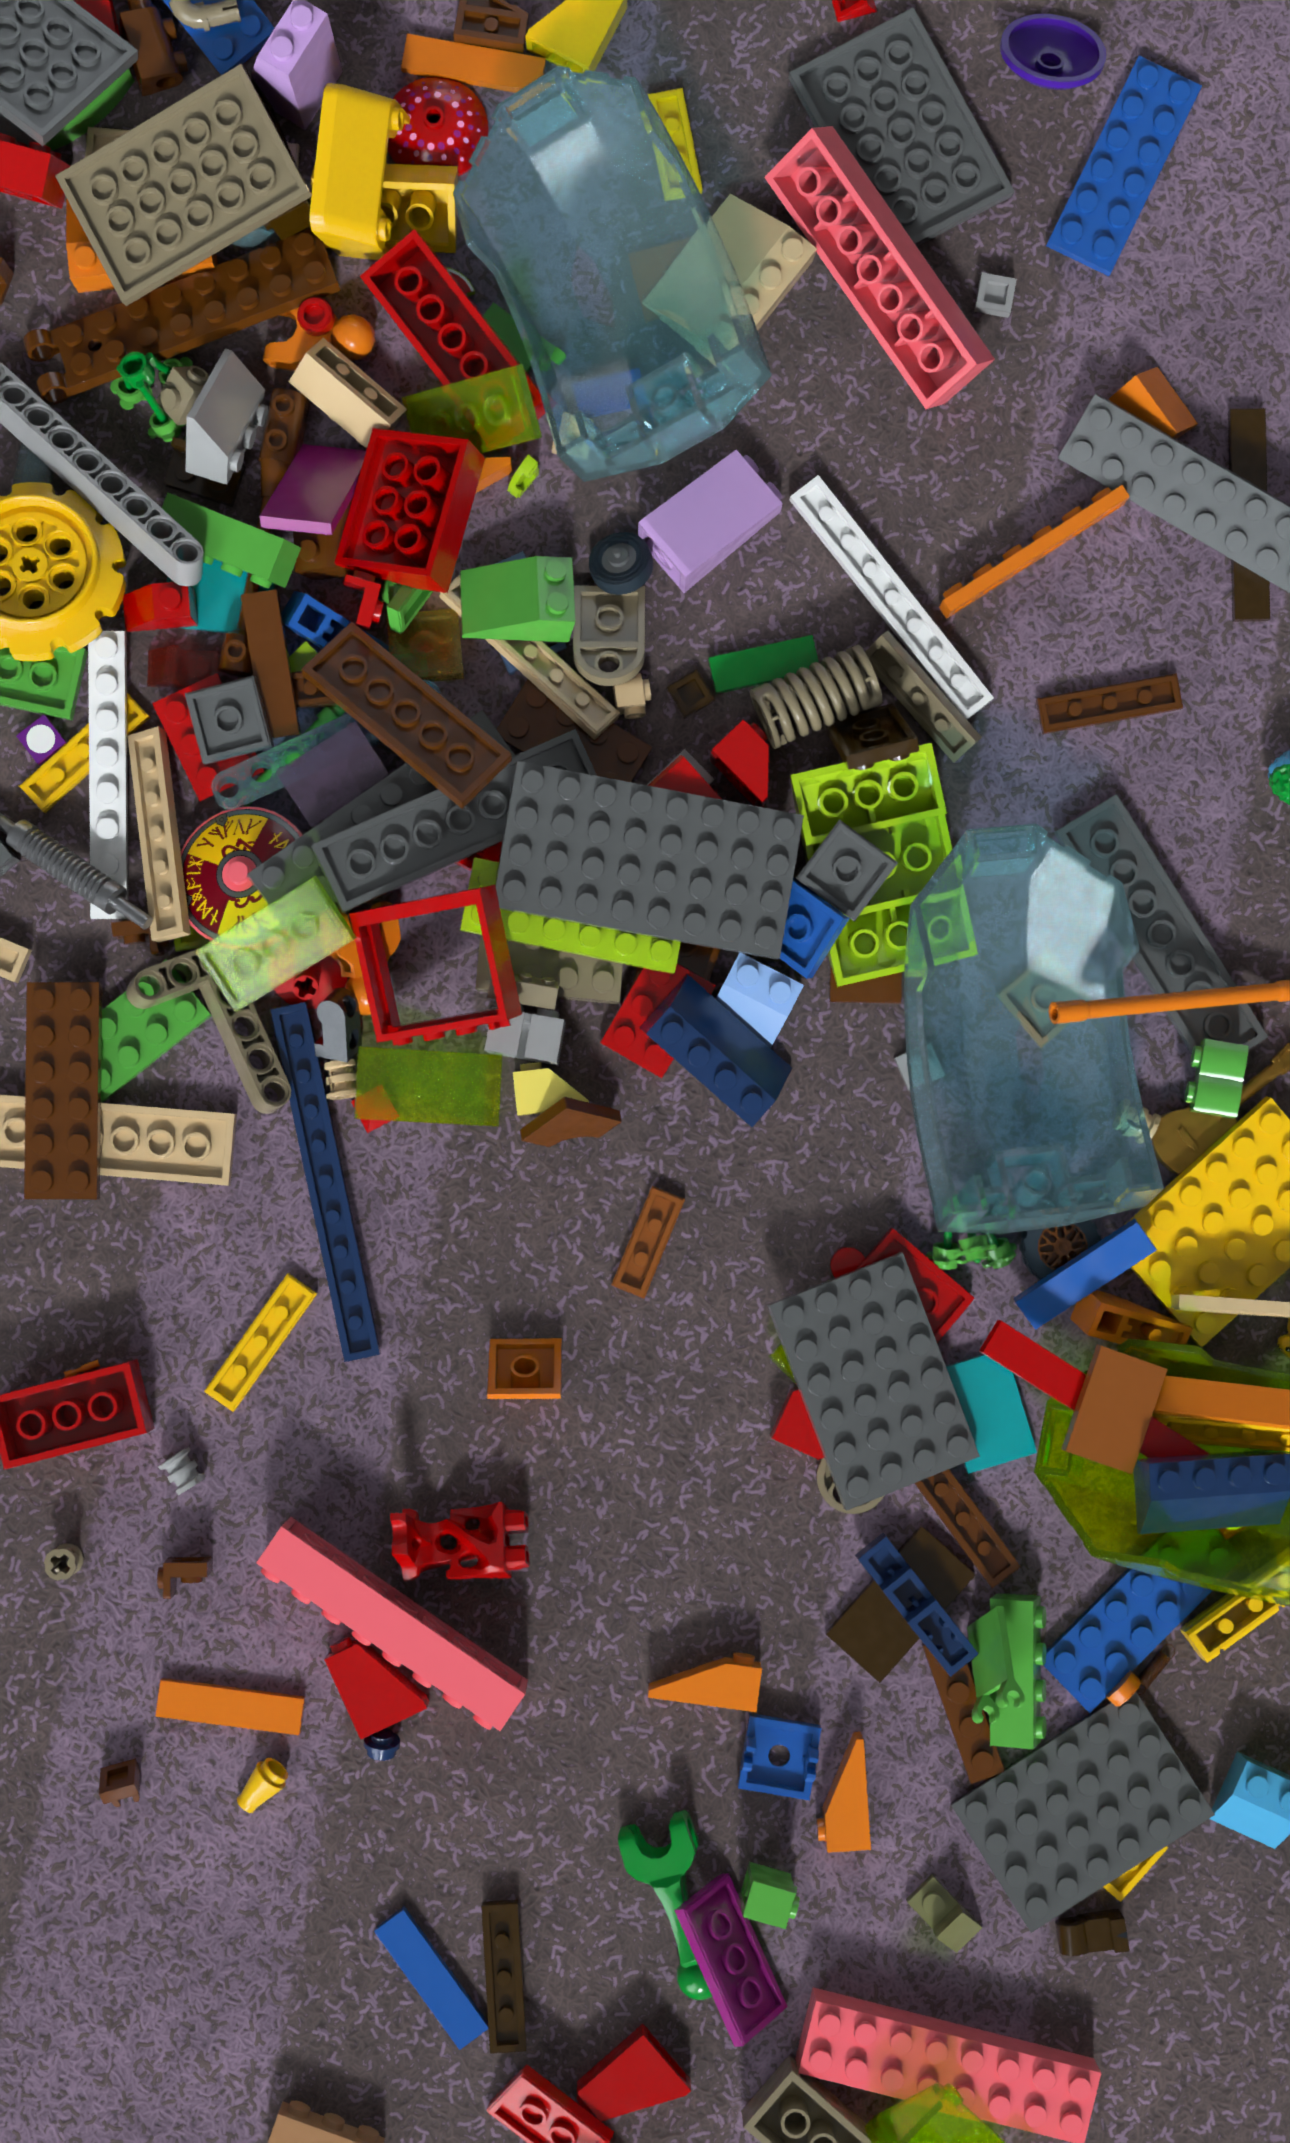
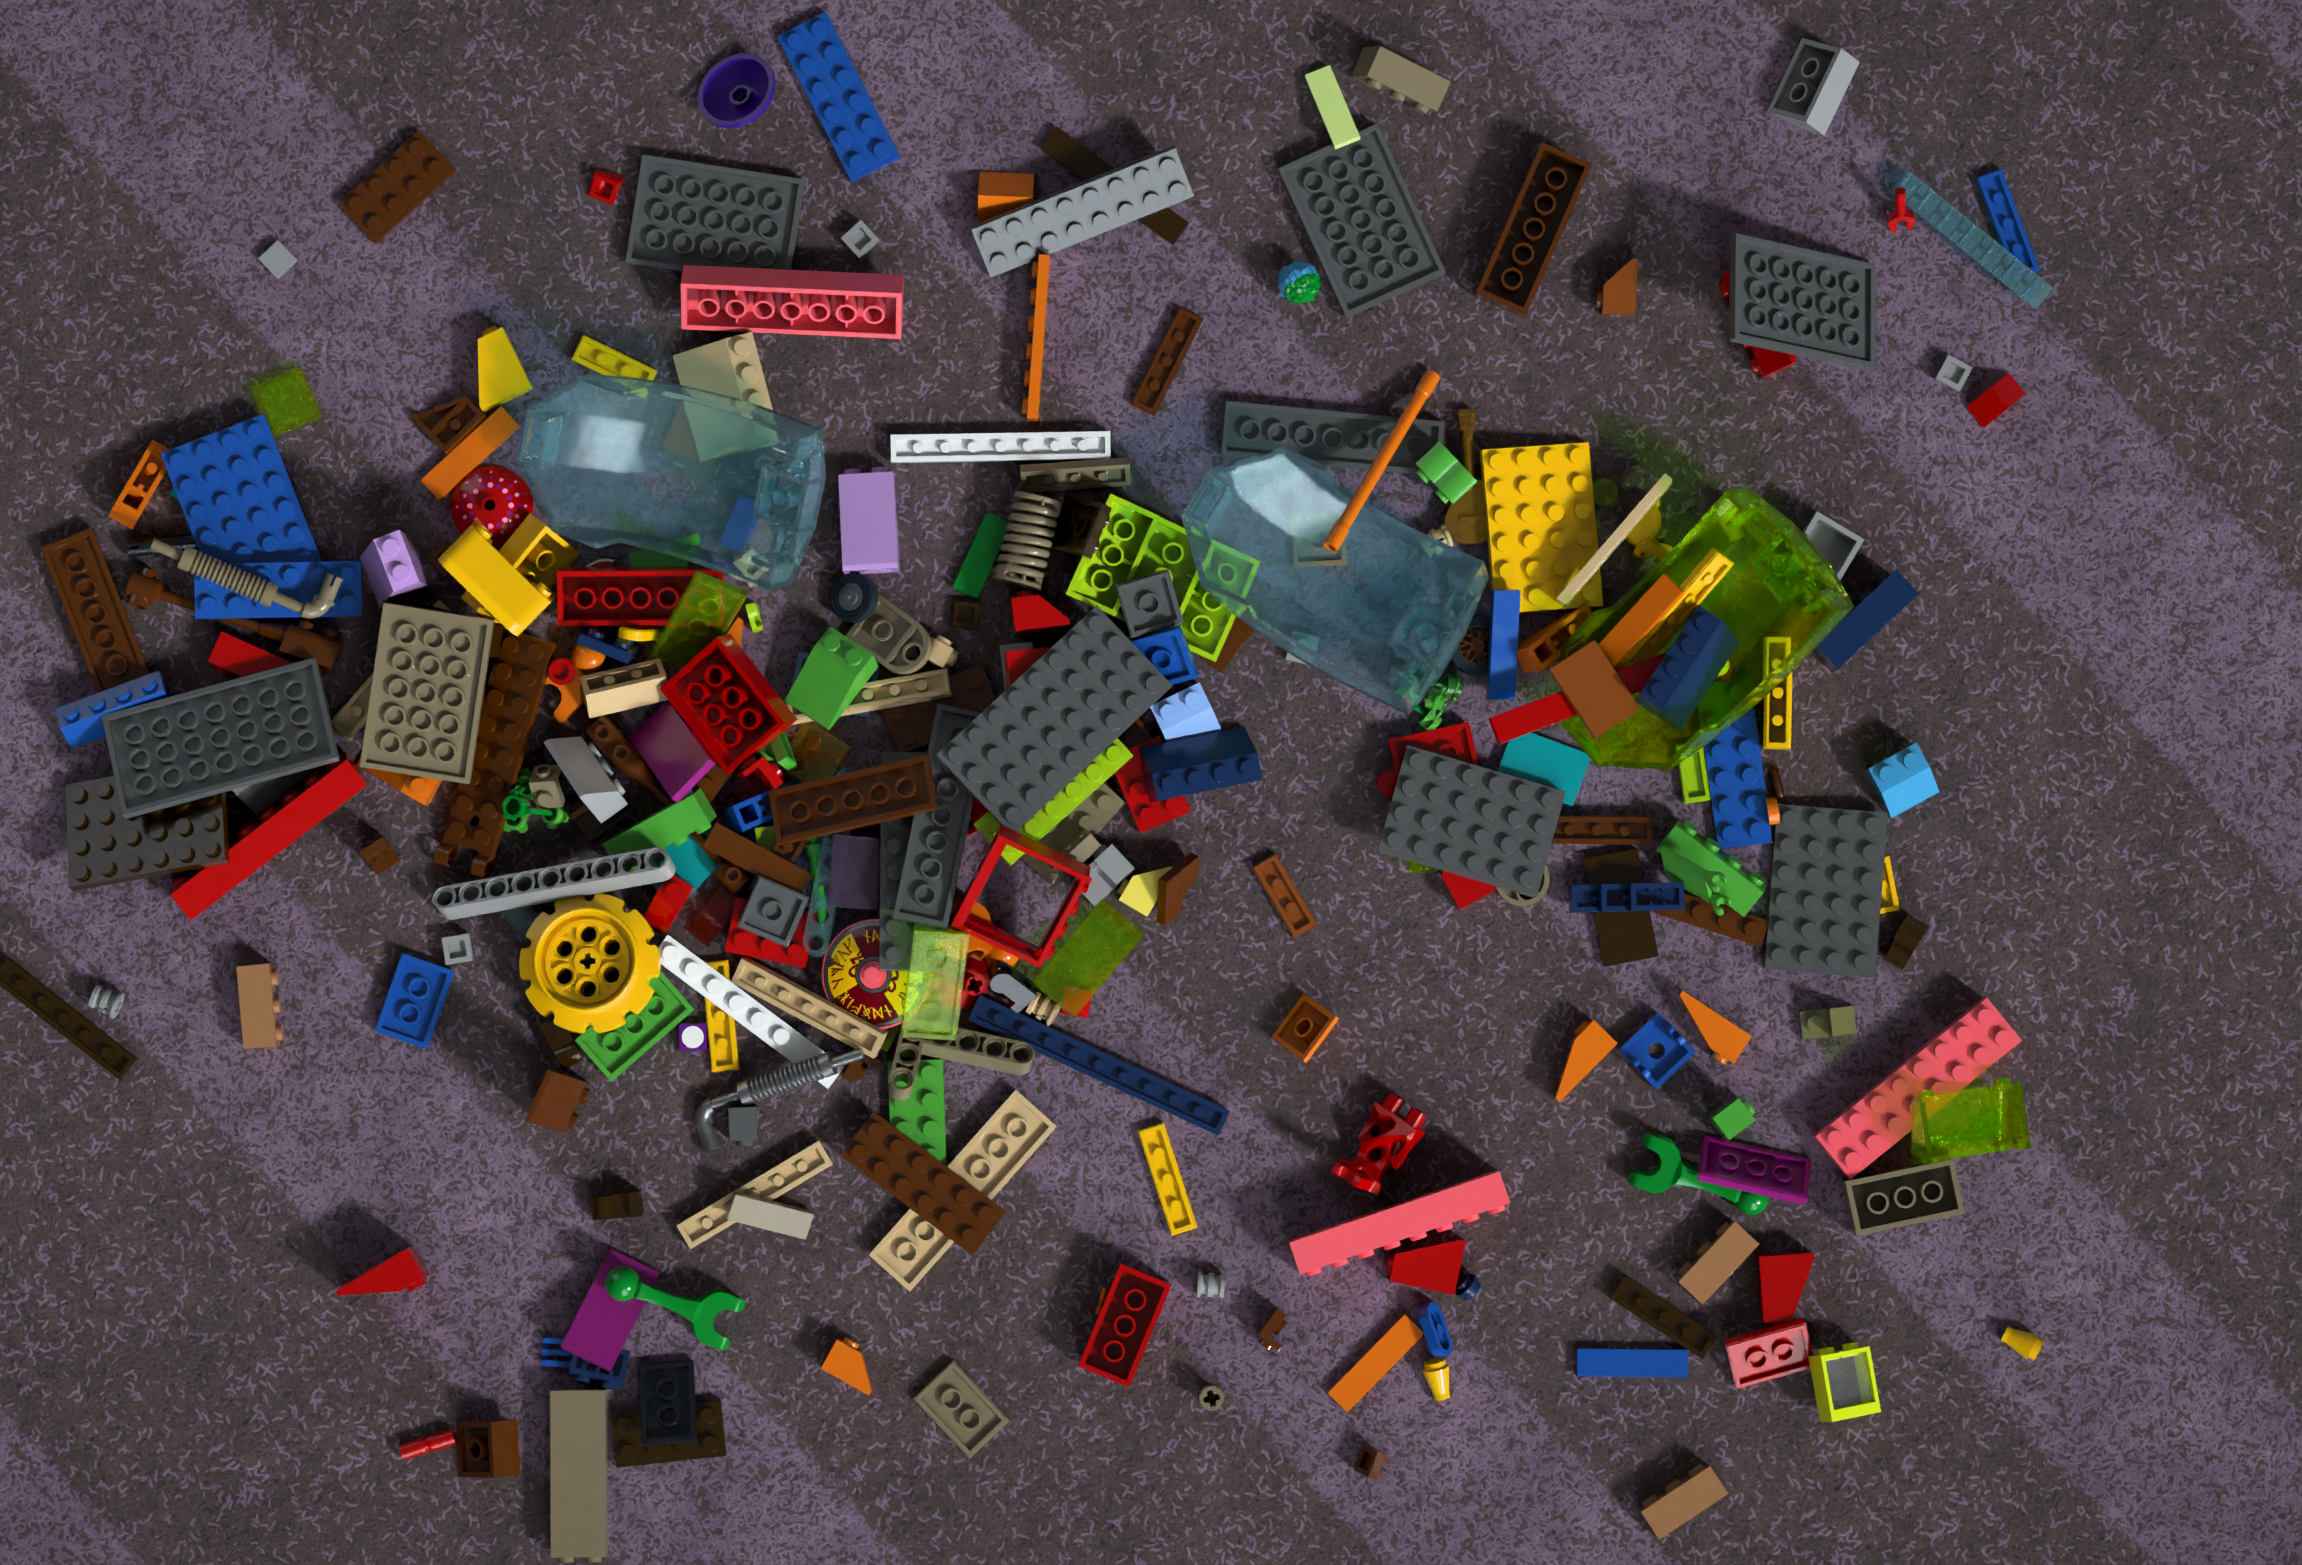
camera: 45 degrees left, 0 degrees up
(310, 1744) = (1435, 1330): none -> blue plate
(382, 344) = (607, 643): none -> dark blue plate
(415, 365) = (638, 633): none -> yellow tile
(605, 1990) = (1716, 1261): none -> medium nougat brick
(1091, 1582) = (1694, 778): none -> lime tile

